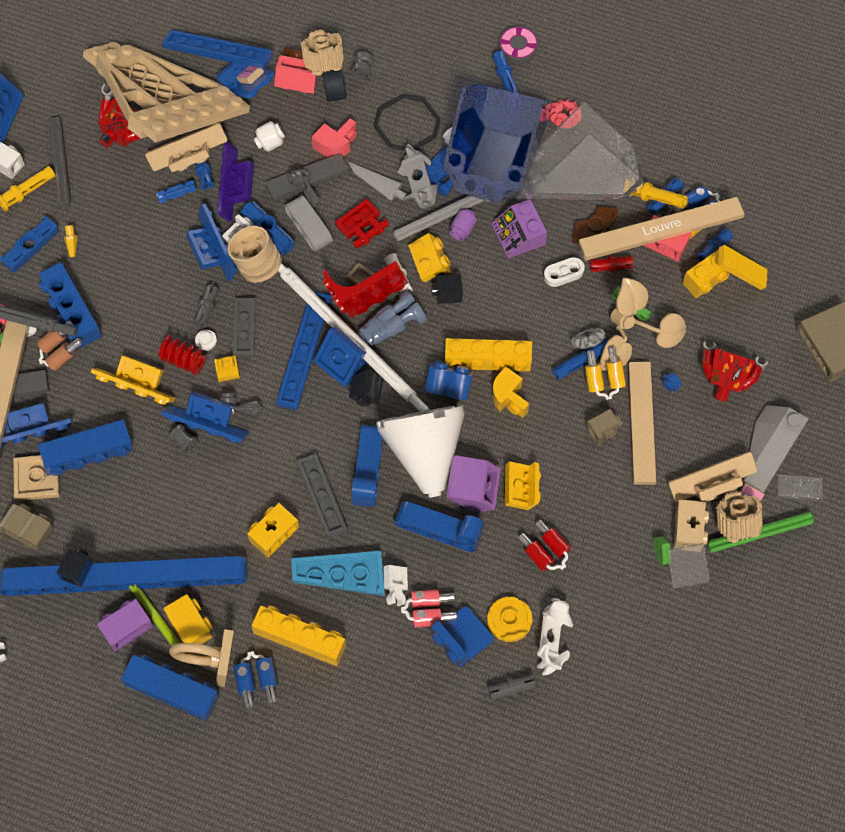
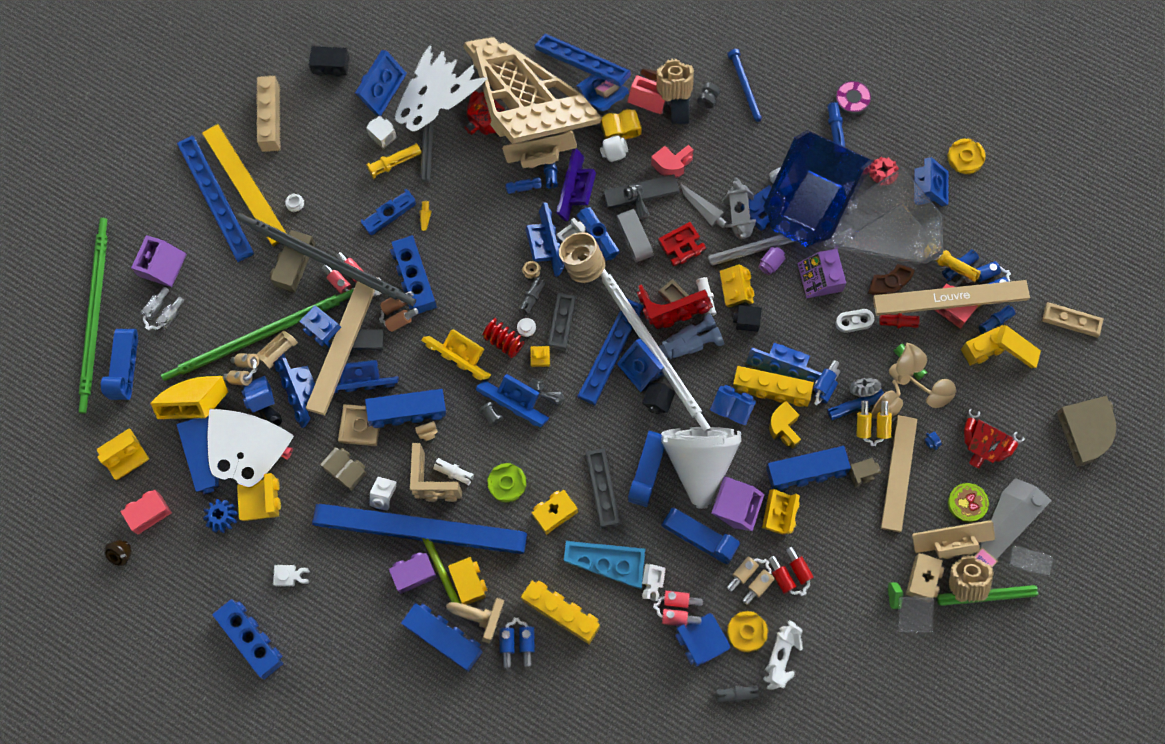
camera: 15 degrees right, 5 degrees up
(62, 97) = (438, 95): none -> white piece
(74, 540) = (382, 493): none -> white bracket
(74, 567) = (378, 515): black brick -> none
(113, 469) = (426, 431): none -> tan plate
(128, 530) = (429, 490): none -> tan bracket
(151, 508) = (453, 471): none -> white pin
(200, 273) = (531, 265): none -> tan plate
(213, 509) = (506, 482): none -> lime tile
(274, 109) = (623, 124): none -> yellow brick
(382, 20) = (734, 56): none -> blue bar
(396, 100) = (731, 133): black piece -> none
(496, 327) = (783, 362): none -> blue bracket
(512, 567) = (760, 583): none -> tan piece
(543, 433) = (808, 468): none -> blue brick
(546, 341) = (826, 383): none -> blue piece
(620, 114) = (933, 181): none -> blue bracket
(649, 84) = (966, 156): none -> yellow tile
(721, 439) = (968, 502): none -> tile
(794, 232) = (1072, 319): none -> tan tile

